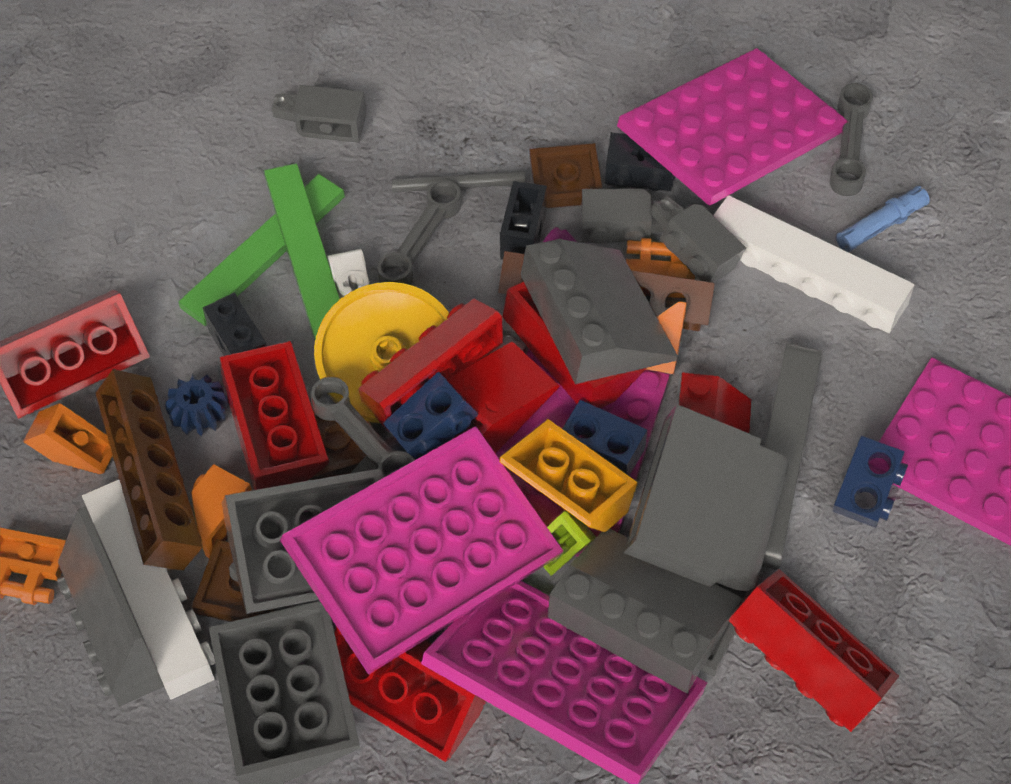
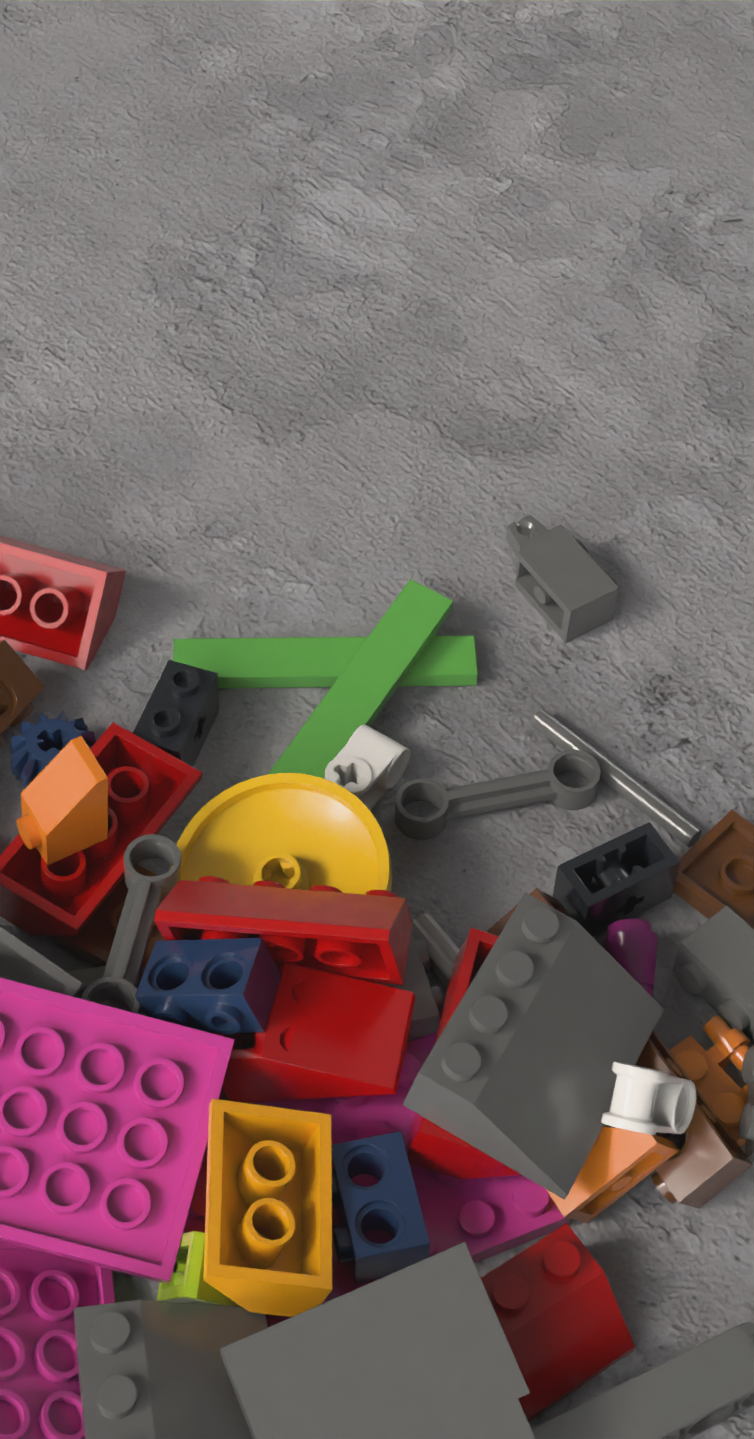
camera: 45 degrees right, 5 degrees down
(263, 403) = (65, 804): none -> orange slope
(662, 290) = (650, 1101): none -> white piece

